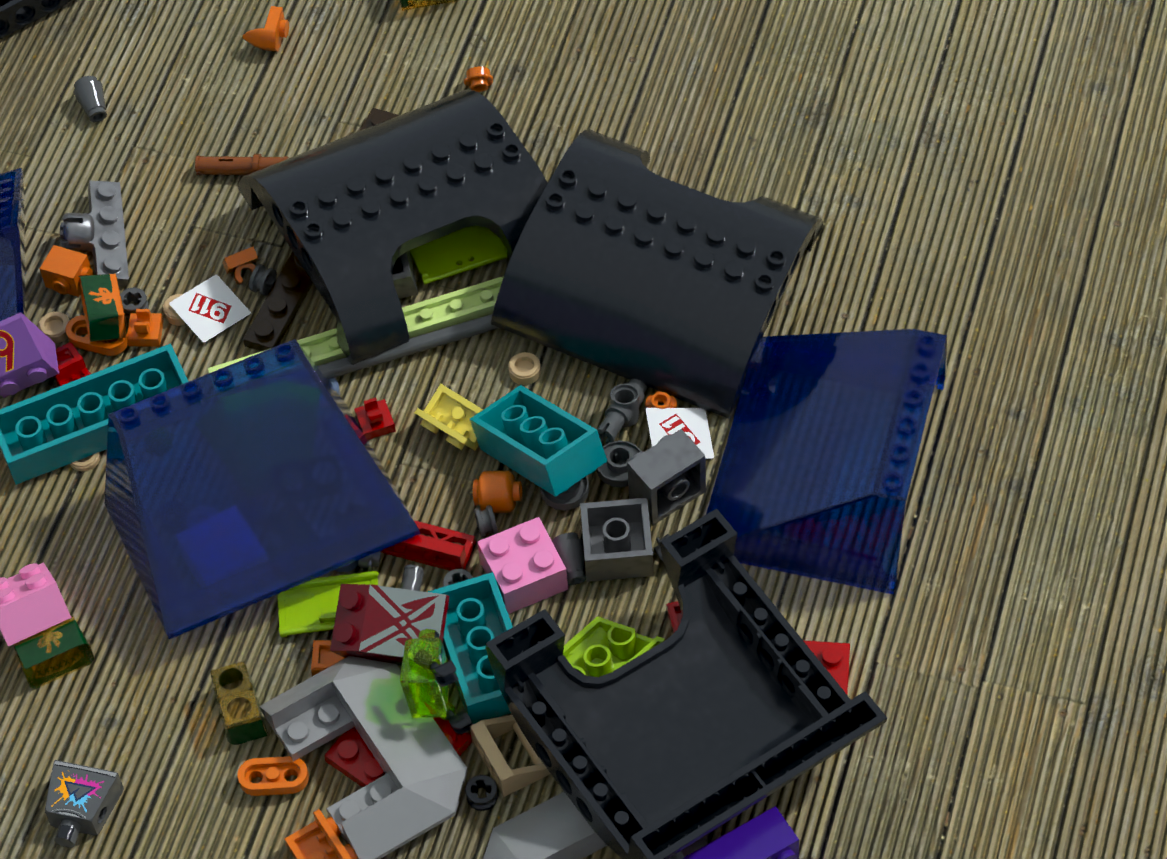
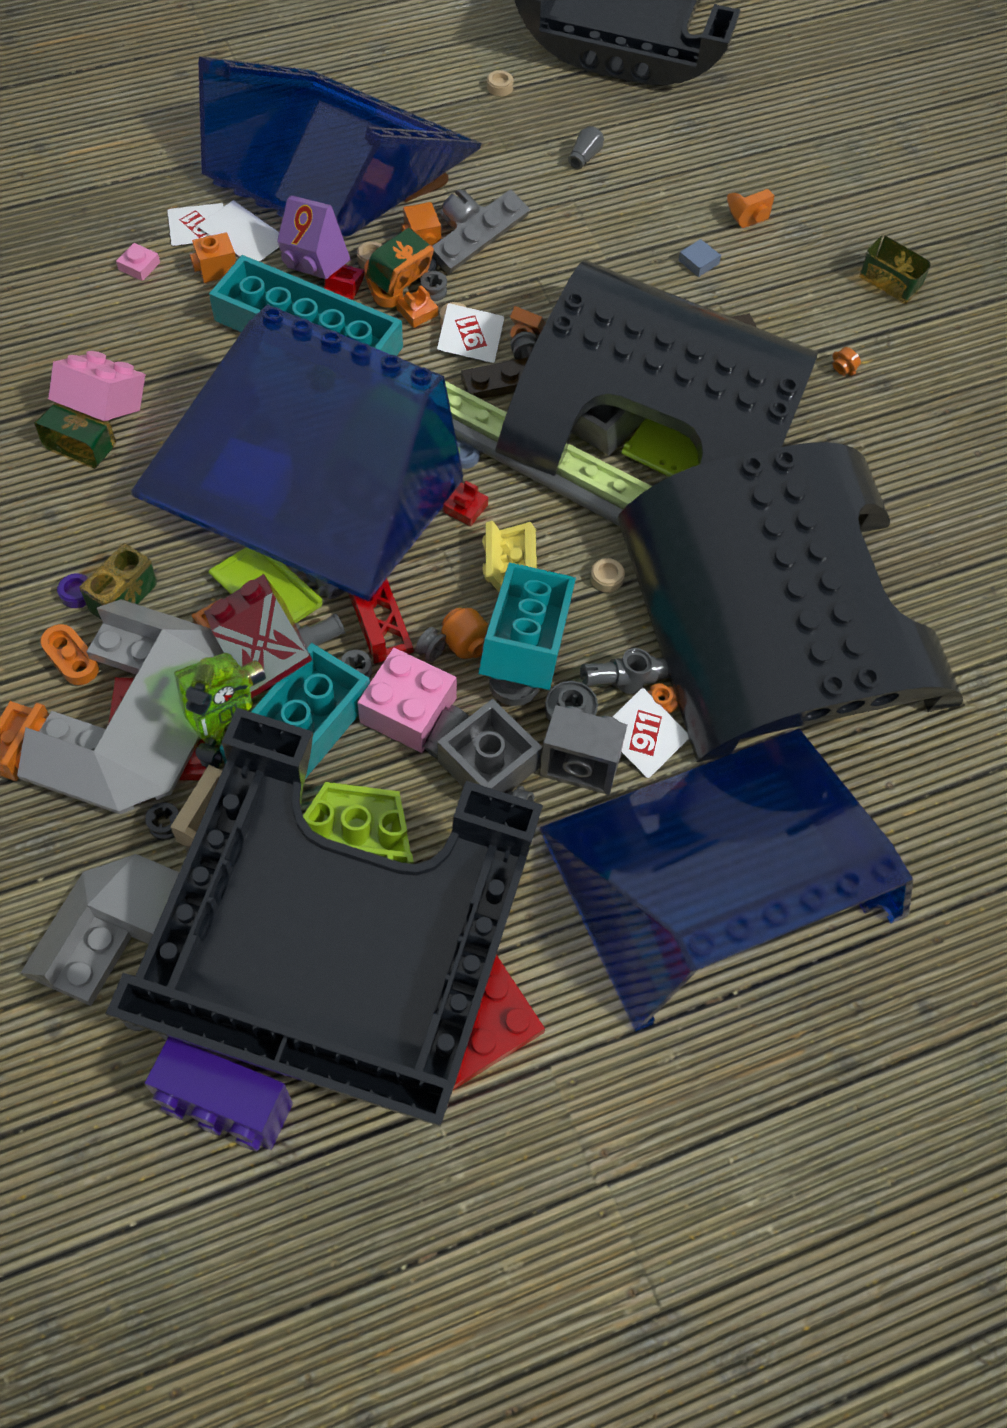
camera: 45 degrees right, 5 degrees up
(209, 741) = (69, 590): none -> dark purple tile
(233, 165) = (606, 258): dark orange pin -> none
(283, 101) = (699, 258): none -> sand blue tile

